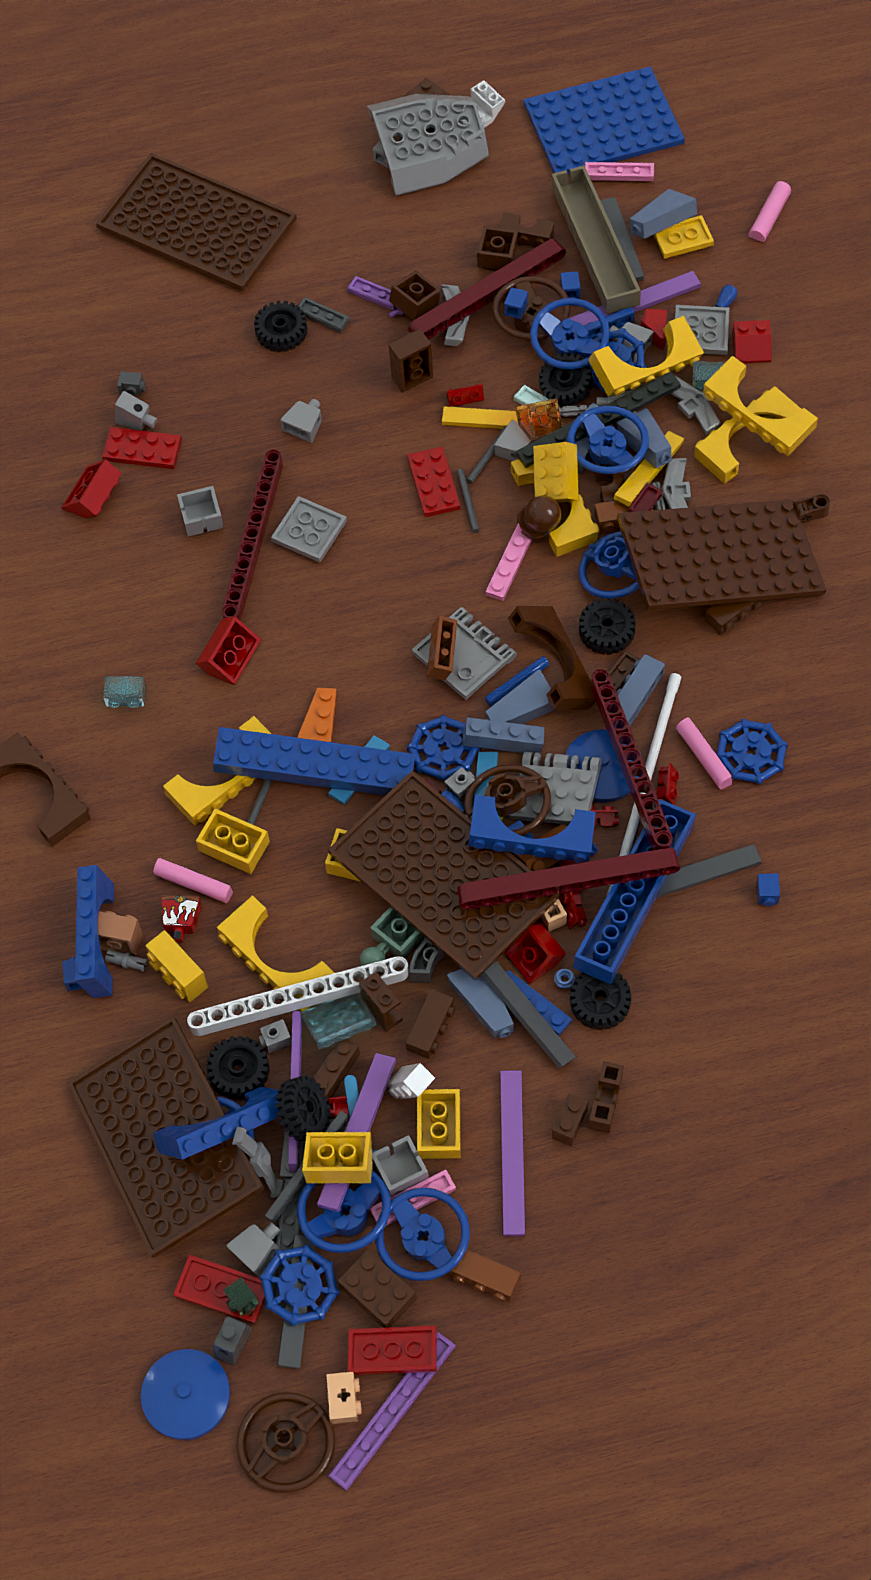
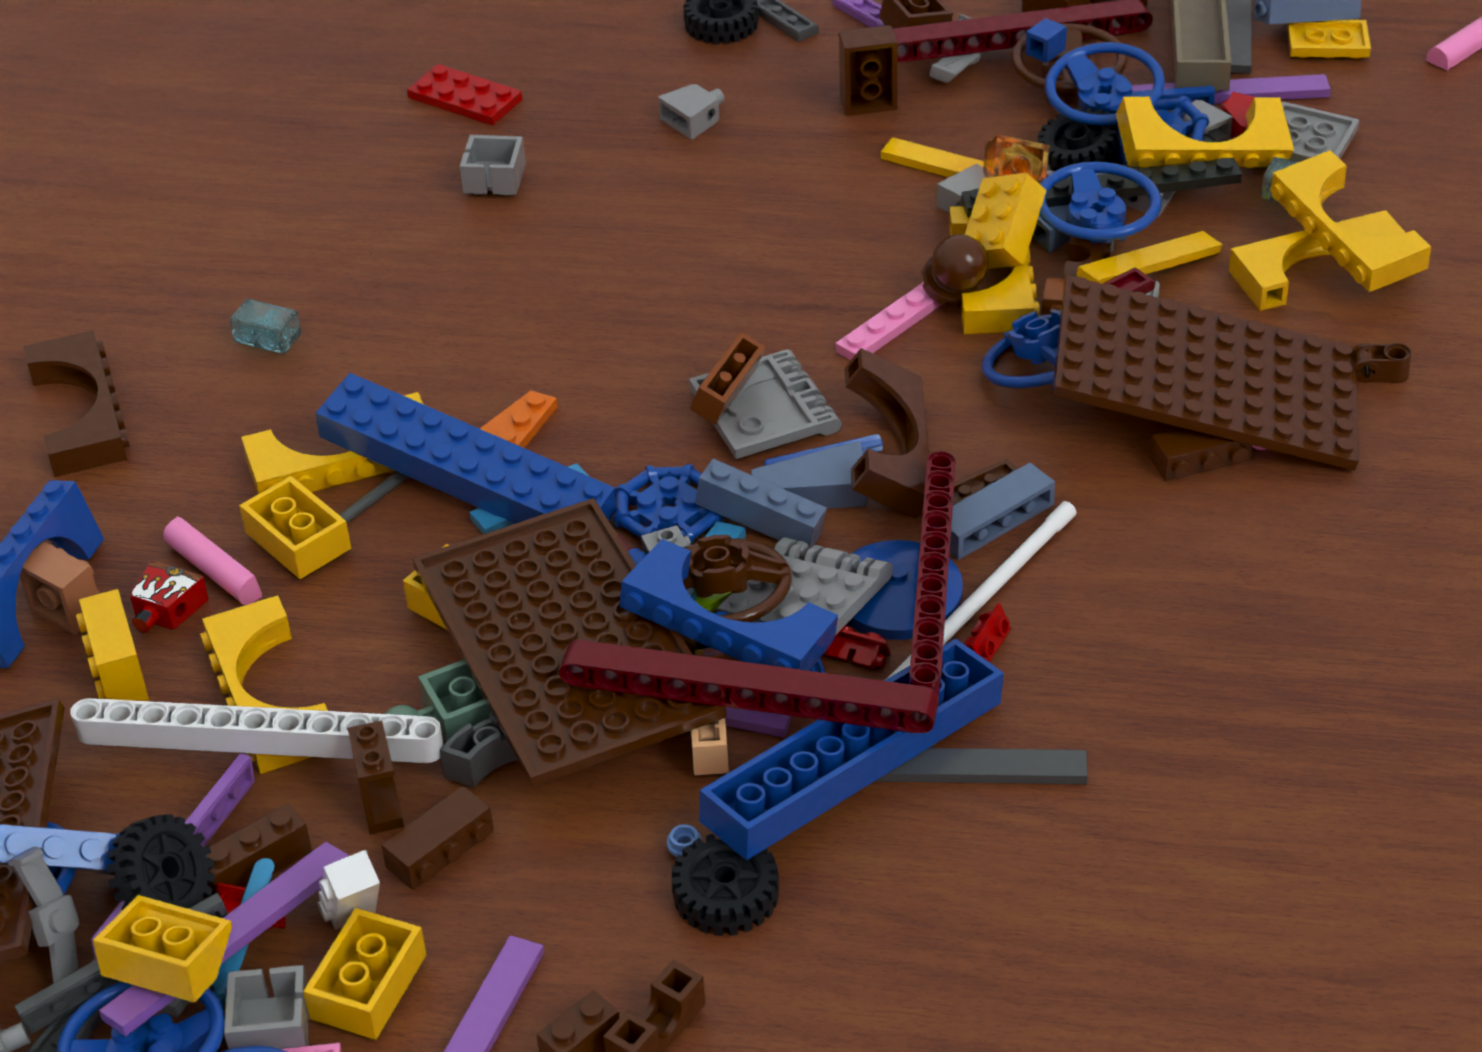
camera: 20 degrees right, 20 degrees down
(92, 489) = (371, 116): red slope -> none
(126, 960) = (56, 630): light grey pin -> none
(131, 383) = (490, 28): dark grey brick -> none
(133, 412) = (471, 50): light grey torso -> none
(228, 650) = (435, 319): red slope -> none
(232, 1053) = (117, 797): black wheel -> none
(268, 482) = (543, 213): dark red beam -> none
(275, 1036) = (194, 781): light grey brick -> none
(309, 529) = (629, 220): light grey plate -> none
(338, 1019) = (298, 783): clear light blue plate -> none
(433, 482) = (832, 212): red plate -> none
(465, 395) = (930, 131): red hinge -> none
(468, 502) = (869, 242): dark grey bar -> none
(482, 1002) = (539, 829): sand blue slope -> none
(486, 457) = (909, 210): dark grey bar -> none
(528, 1015) = (594, 869): dark grey tile -> none
(535, 953) = (656, 791): red slope -> none
(554, 1016) = (617, 862): blue plate -> none
(570, 283) = (1145, 43): blue brick -> none
(574, 915) = (751, 740): red hinge -> none
(602, 638) = (993, 423): black wheel -> none
(658, 449) = (1170, 229): sand blue slope -> none
(674, 489) = (1184, 280): light grey plate -> none
(695, 404) = (1255, 208): light grey plate -> none
(704, 753) = (1064, 613): bright pink brick -> none
(727, 296) = (1363, 108): blue cone -> none
(752, 341) = (1377, 161): red slope -> none
(754, 741) = (1147, 652): blue plate -> none
(768, 889) = (1078, 814): blue brick -> none

